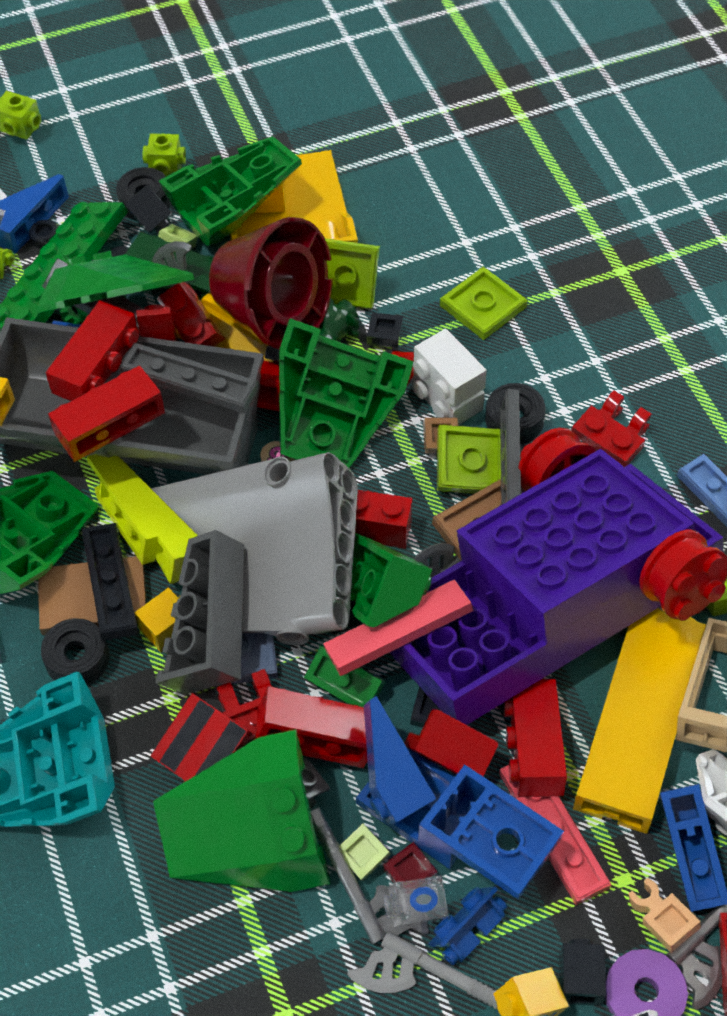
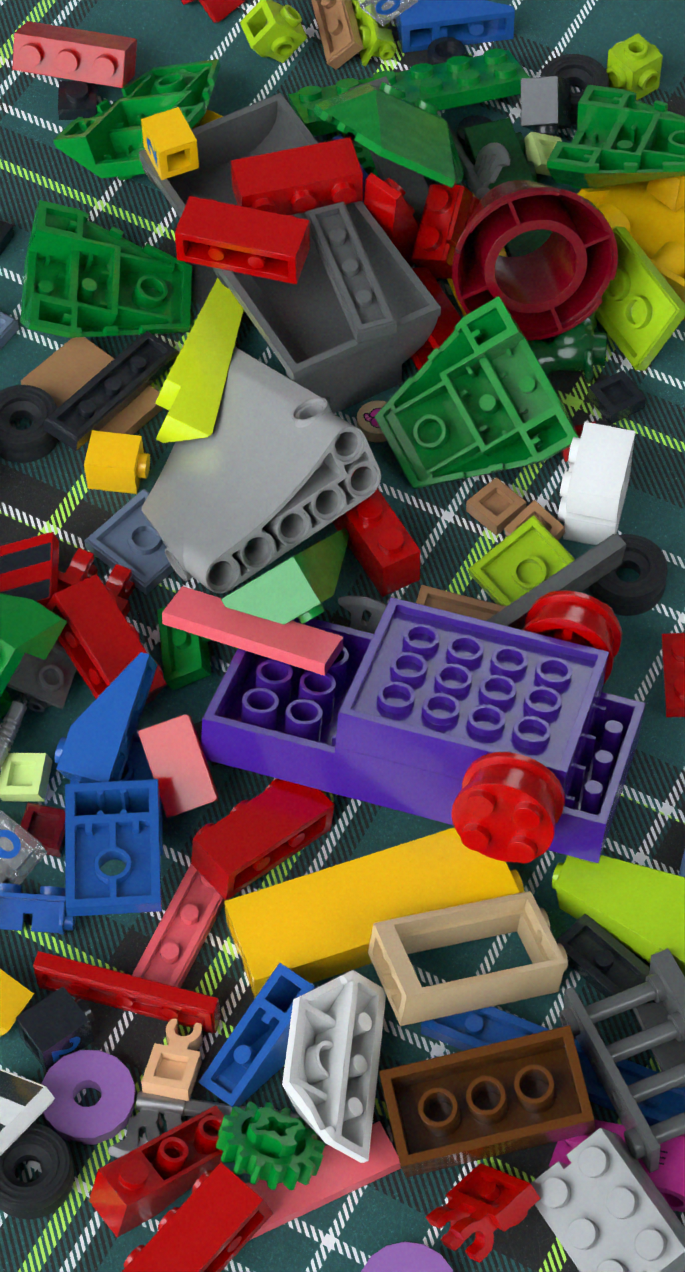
camera: 50 degrees right, 0 degrees up
(207, 615) = (135, 481): dark grey wedge -> none
(403, 442) = (495, 506): none -> medium nougat plate
(587, 908) = (127, 992): none -> red tile

